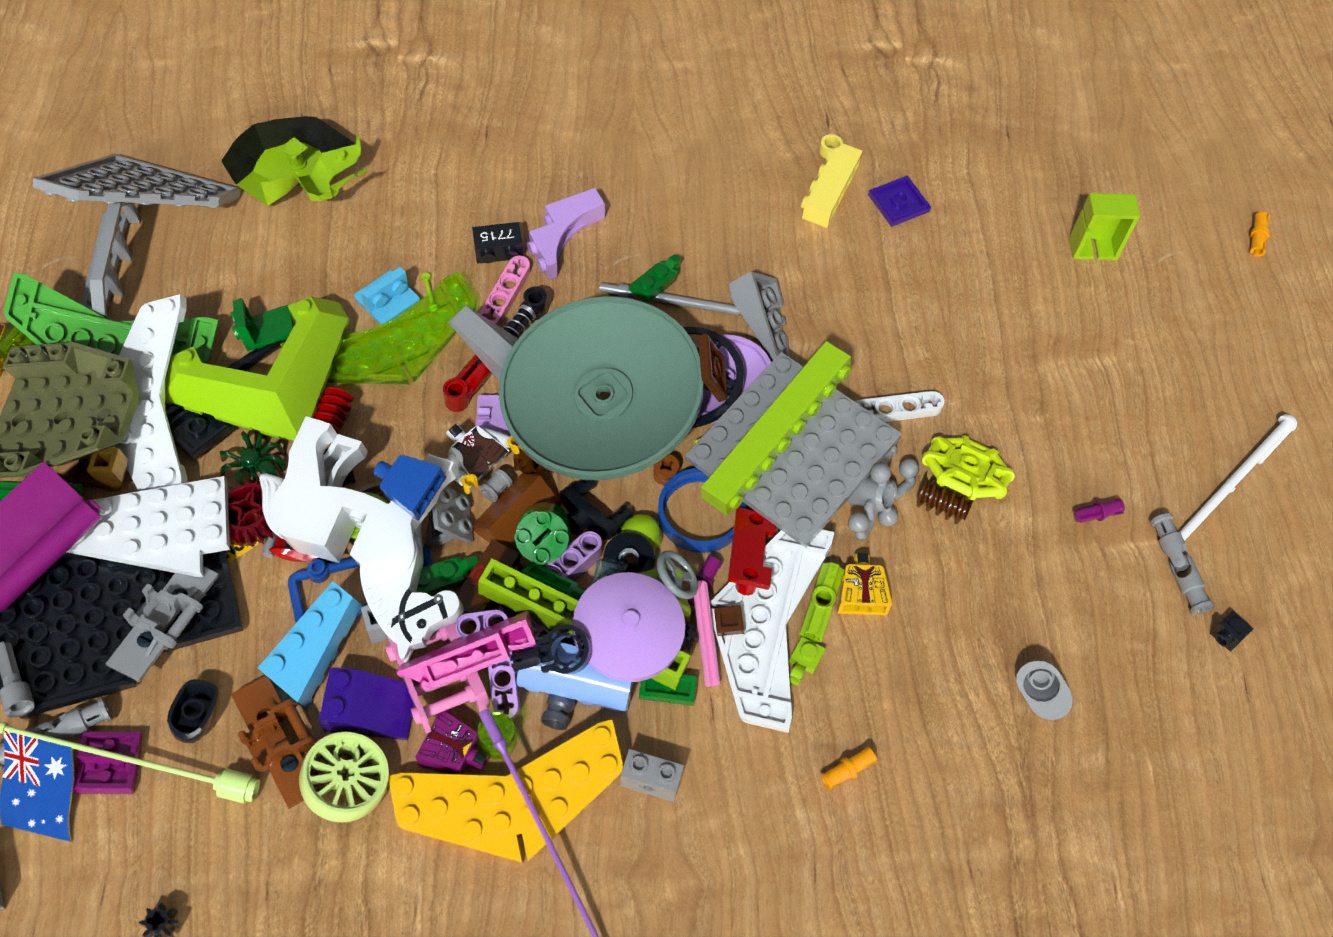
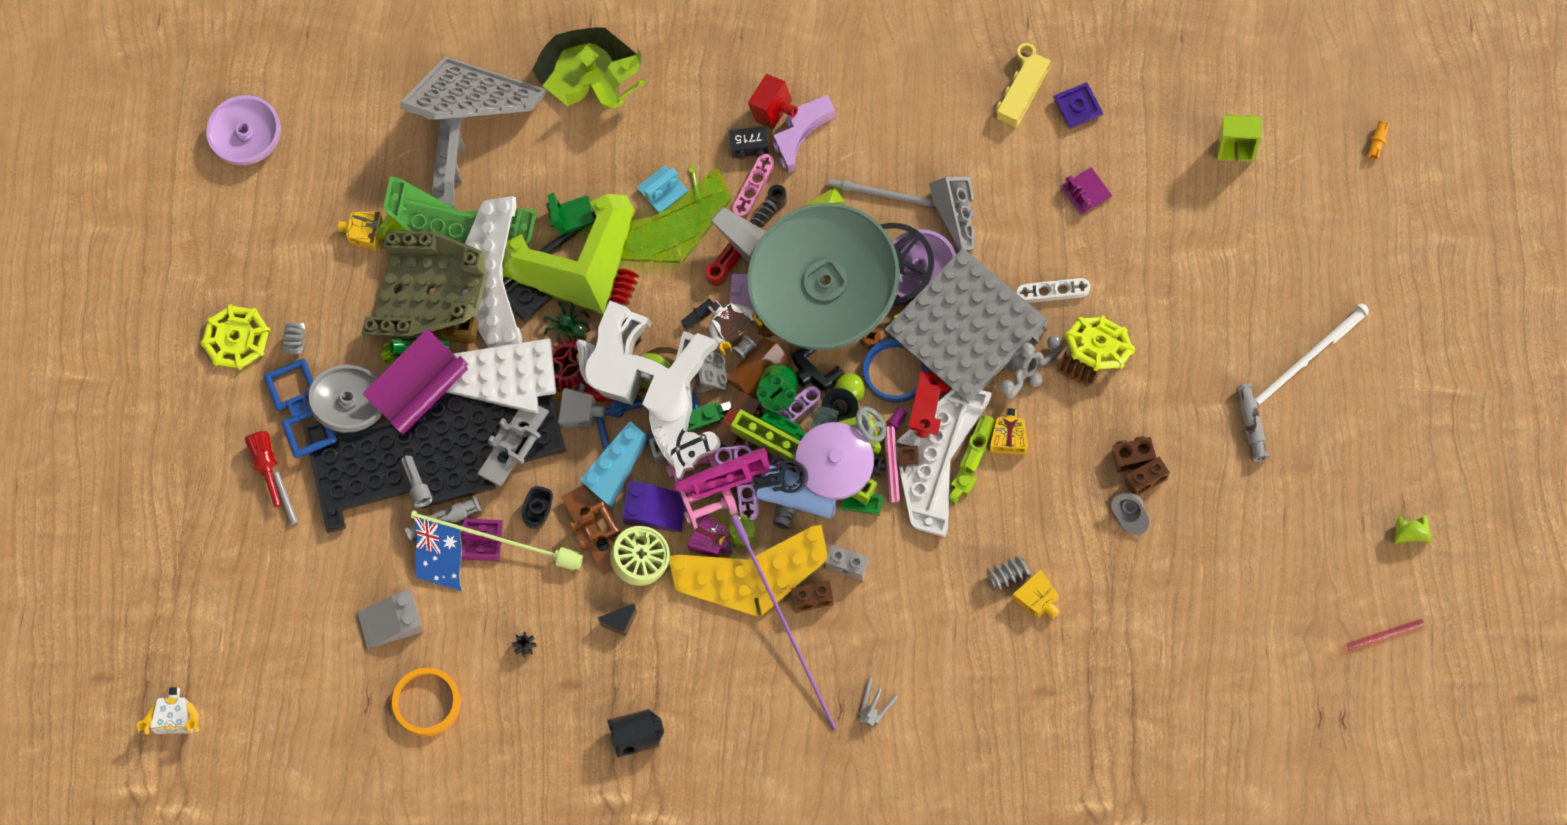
camera: 15 degrees right, 10 degrees up
(262, 572) = (578, 410): none -> light grey torso
(311, 877) = (619, 620): none -> black slope
(410, 483) = (684, 355): blue torso -> none
(432, 444) = (697, 314): none -> black axle
(525, 194) = (771, 101): none -> red brick
(603, 828) = (812, 596): none -> reddish brown brick
(656, 278) = (873, 176): green hinge -> none
(712, 368) = (907, 263): reddish brown tile -> none
(776, 428) = (953, 312): lime brick -> none
(848, 768) = (984, 563): light orange pin -> none
(883, 779) = (1007, 572): none -> light grey piece
(921, 293) = (1085, 190): none -> magenta hinge
(931, 814) = (1038, 596): none -> yellow torso
(1035, 614) = (1135, 458): none -> reddish brown brick
(1058, 638) = (1147, 476): none -> reddish brown brick
(1099, 510) = (1197, 379): magenta axle -> none
(1231, 631) = (1280, 475): black bracket -> none

